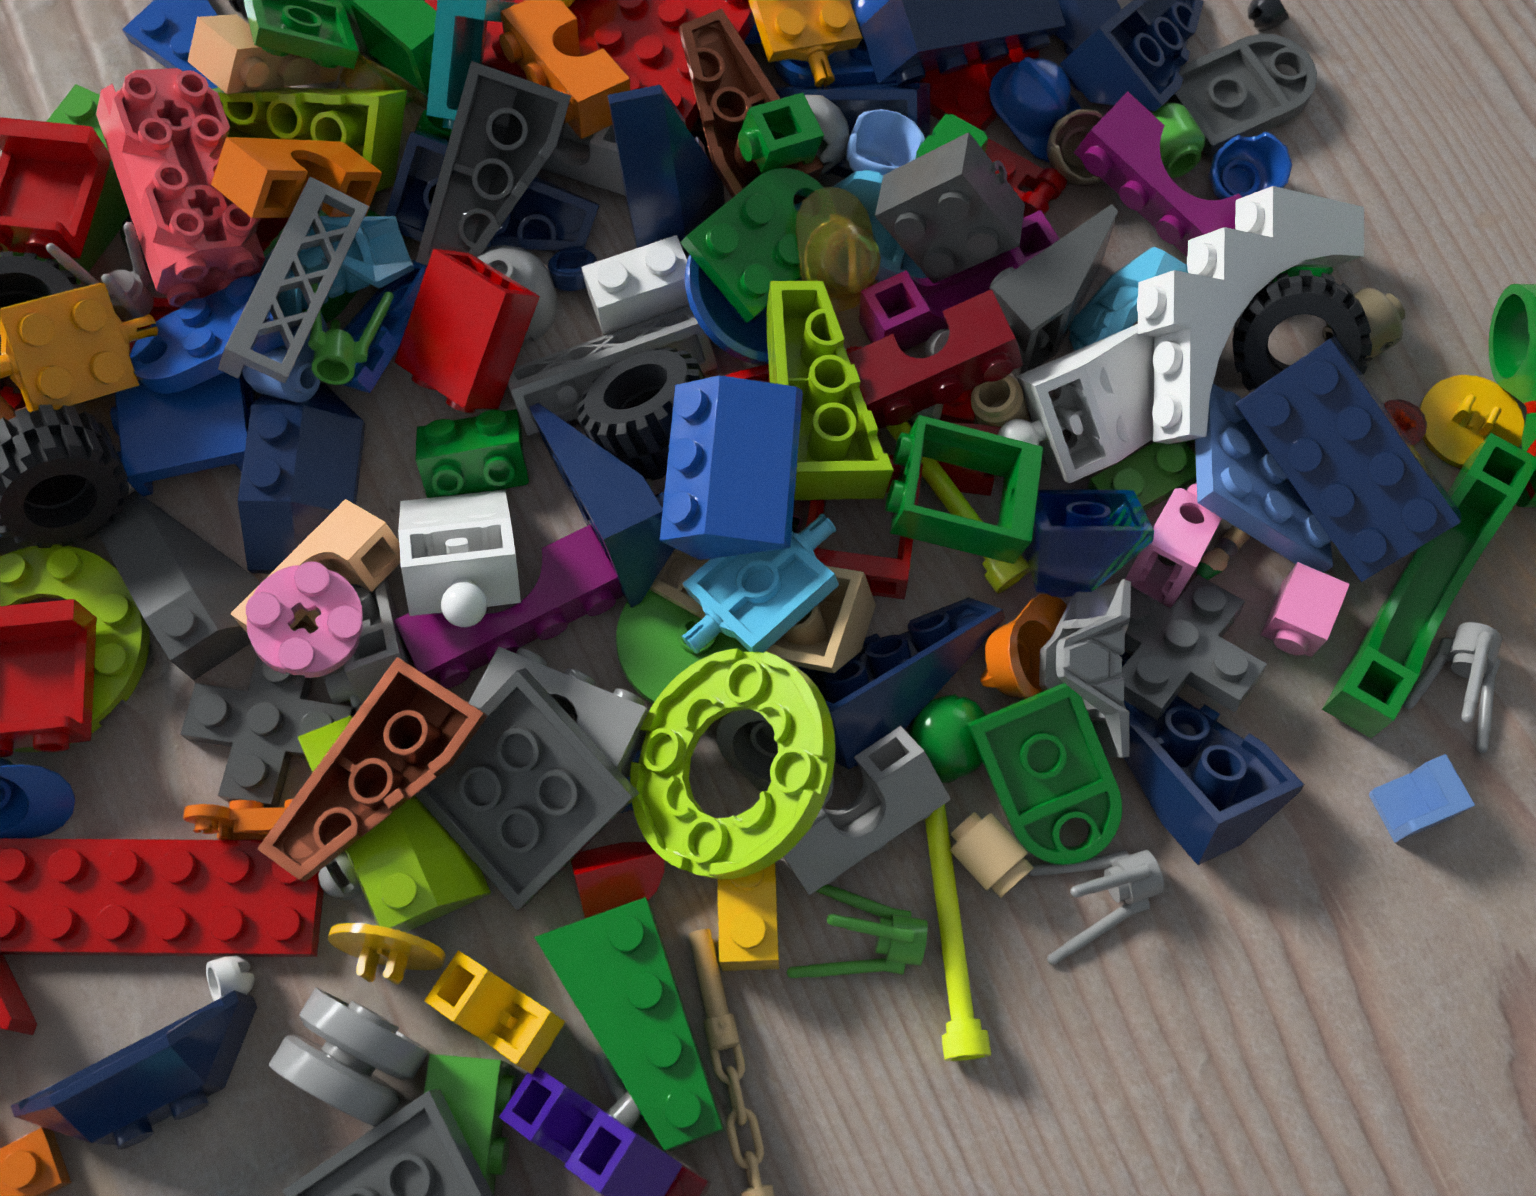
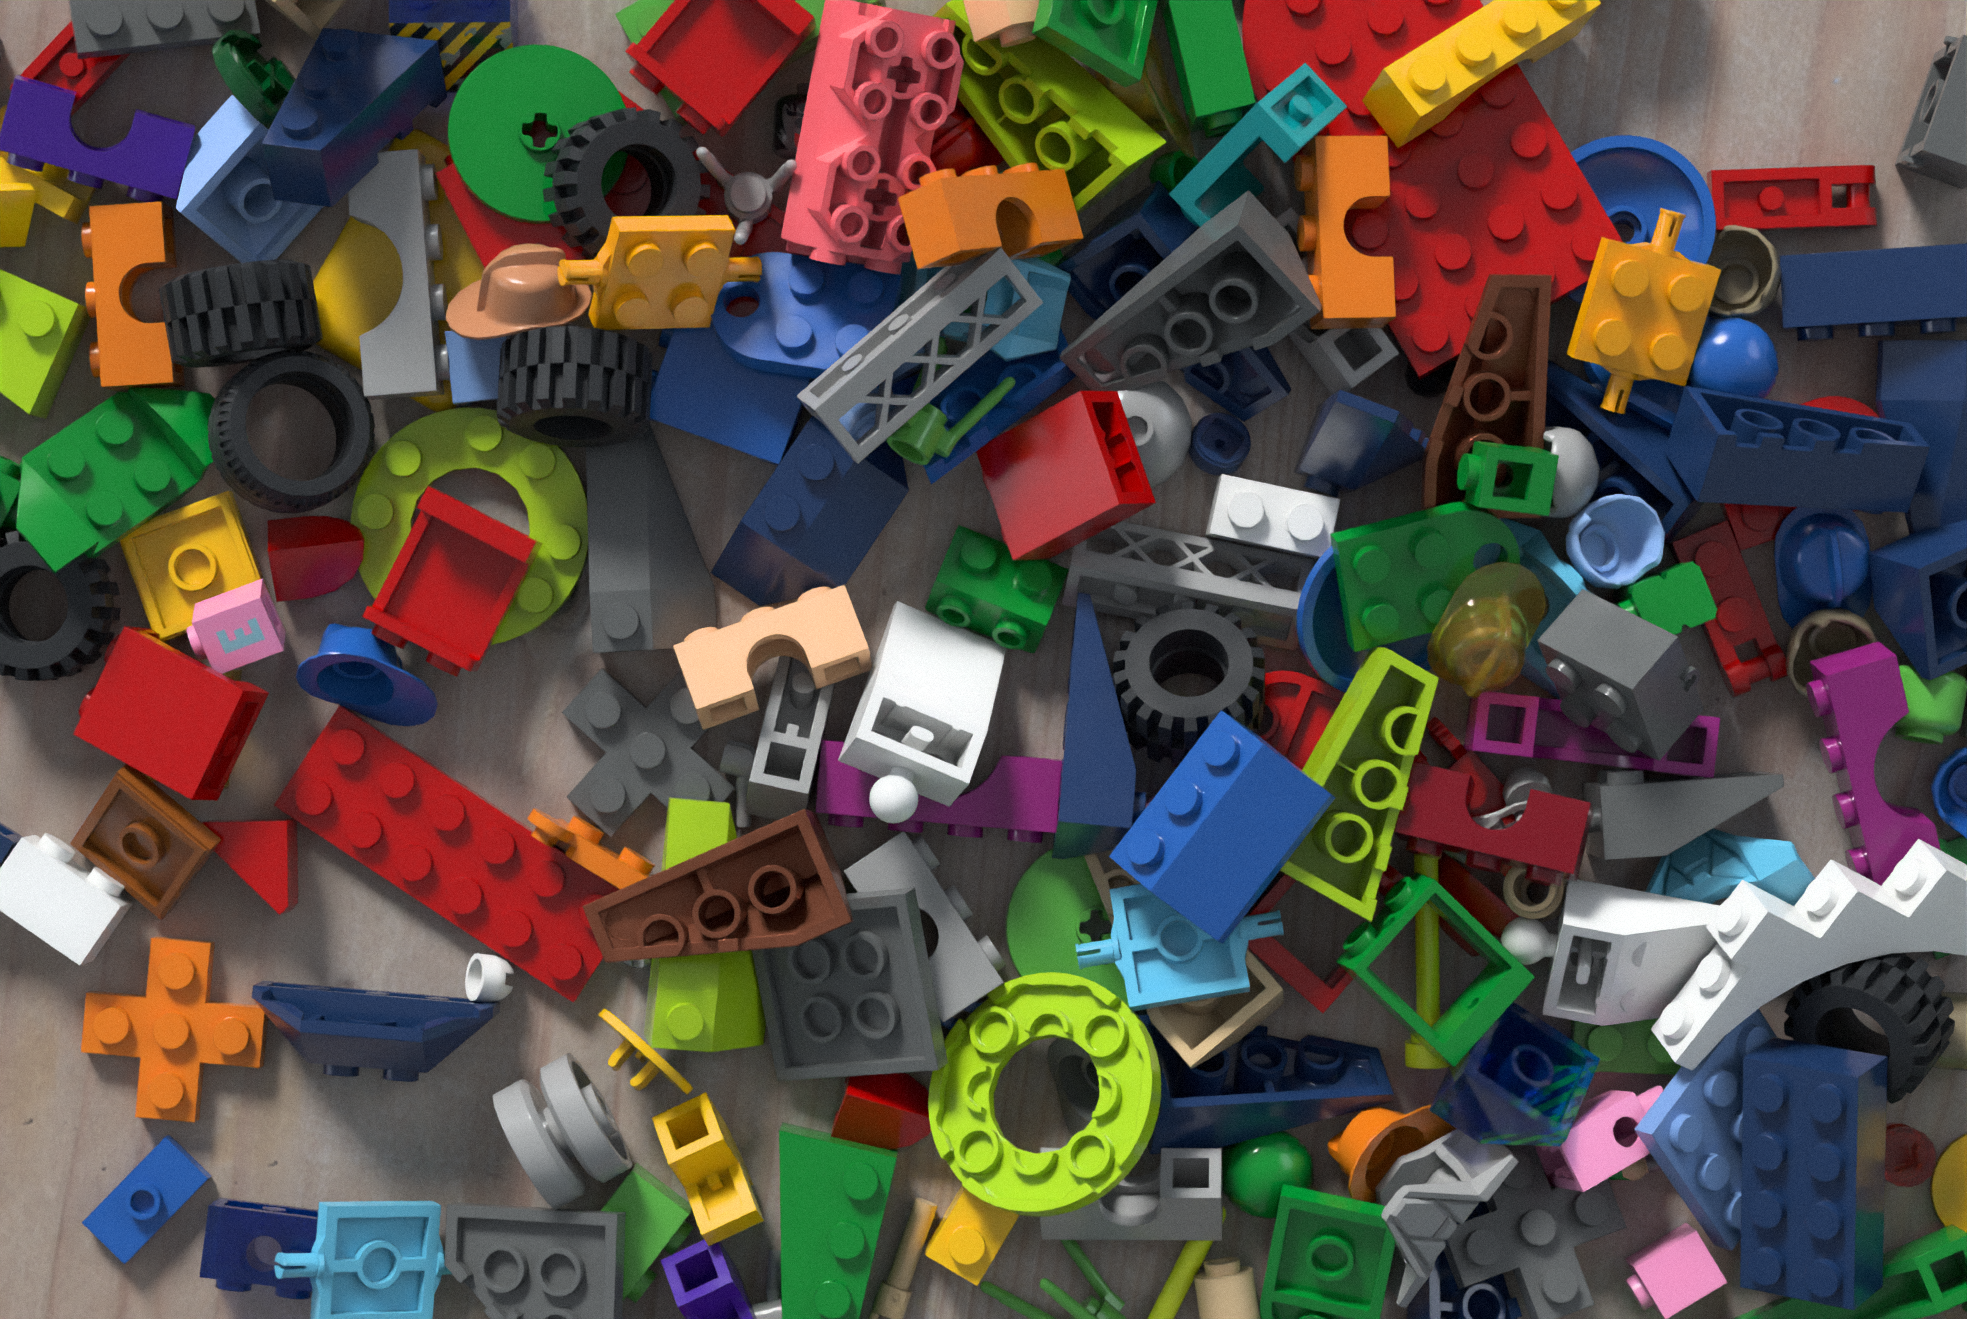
camera: 30 degrees right, 20 degrees up
(306, 588) = (712, 692): bright pink plate -> none

